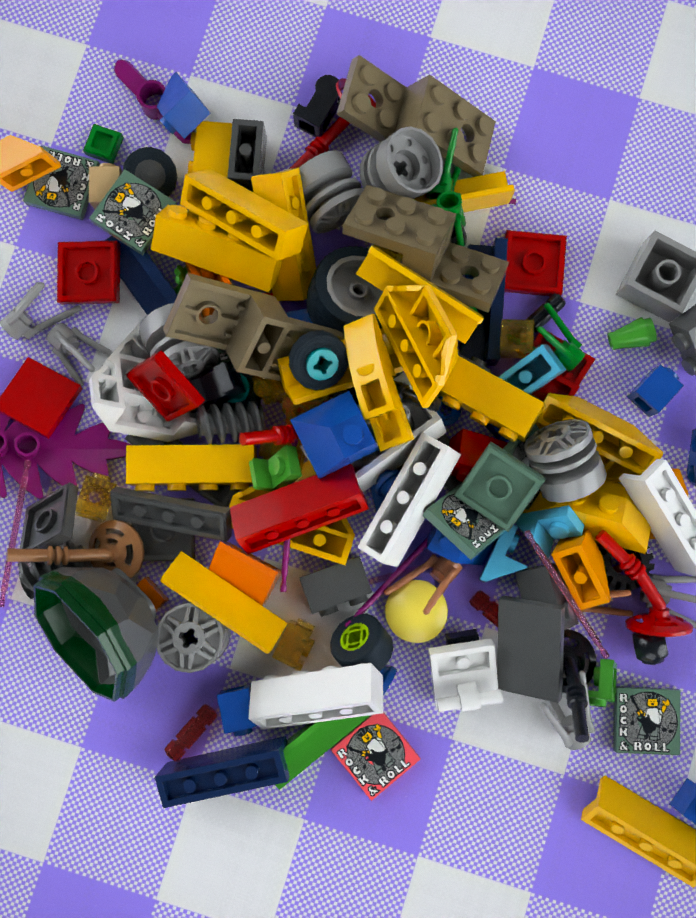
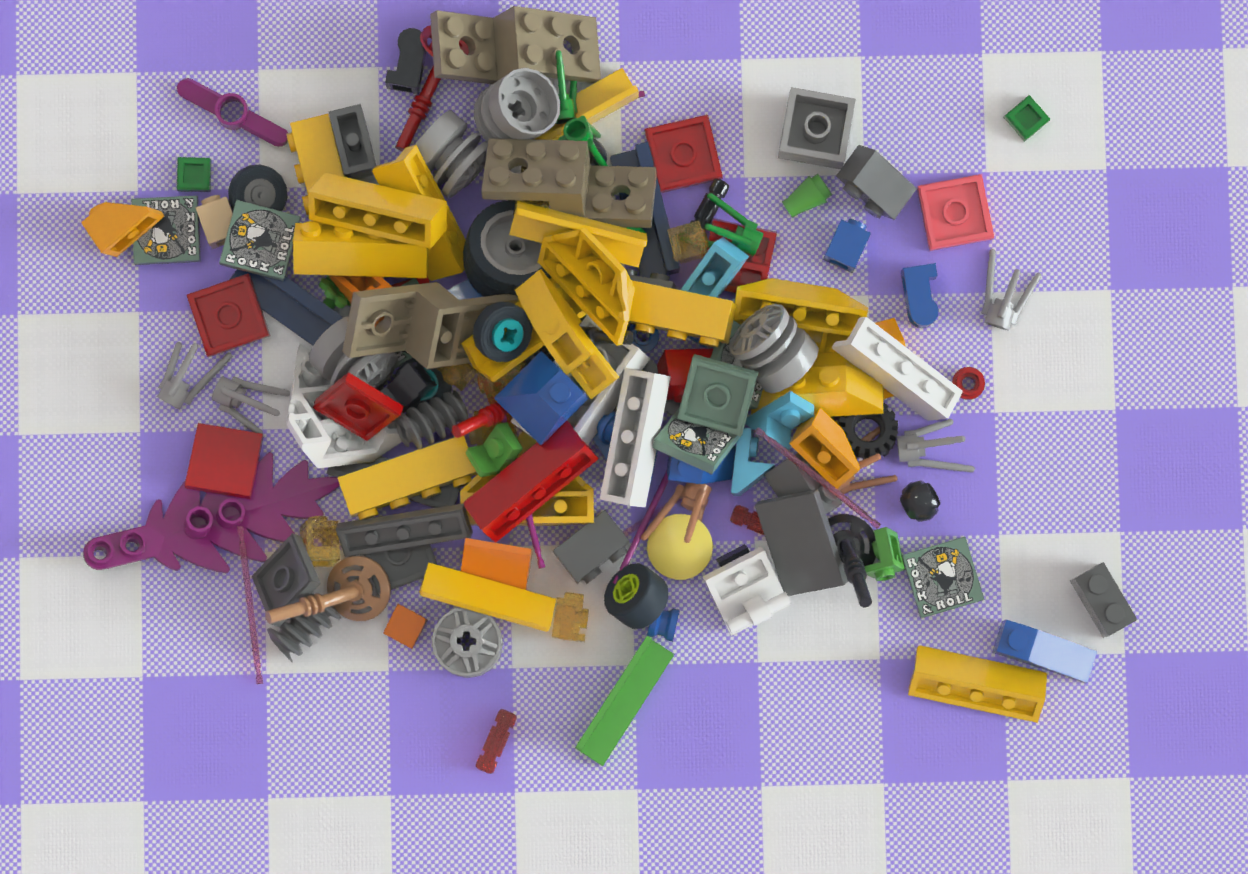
camera: 25 degrees left, 0 degrees up
(98, 626) = (372, 663): rock -> none
(181, 107) = (268, 113): blue slope -> none
(223, 772) = (542, 763): dark blue panel -> none
(235, 710) = (536, 702): blue brick -> none
(316, 696) = (608, 657): white brick -> none
(375, 754) = (686, 700): tile -> none
(565, 726) = (874, 614): light grey plant -> none
(658, 620) = (916, 472): red dish -> none

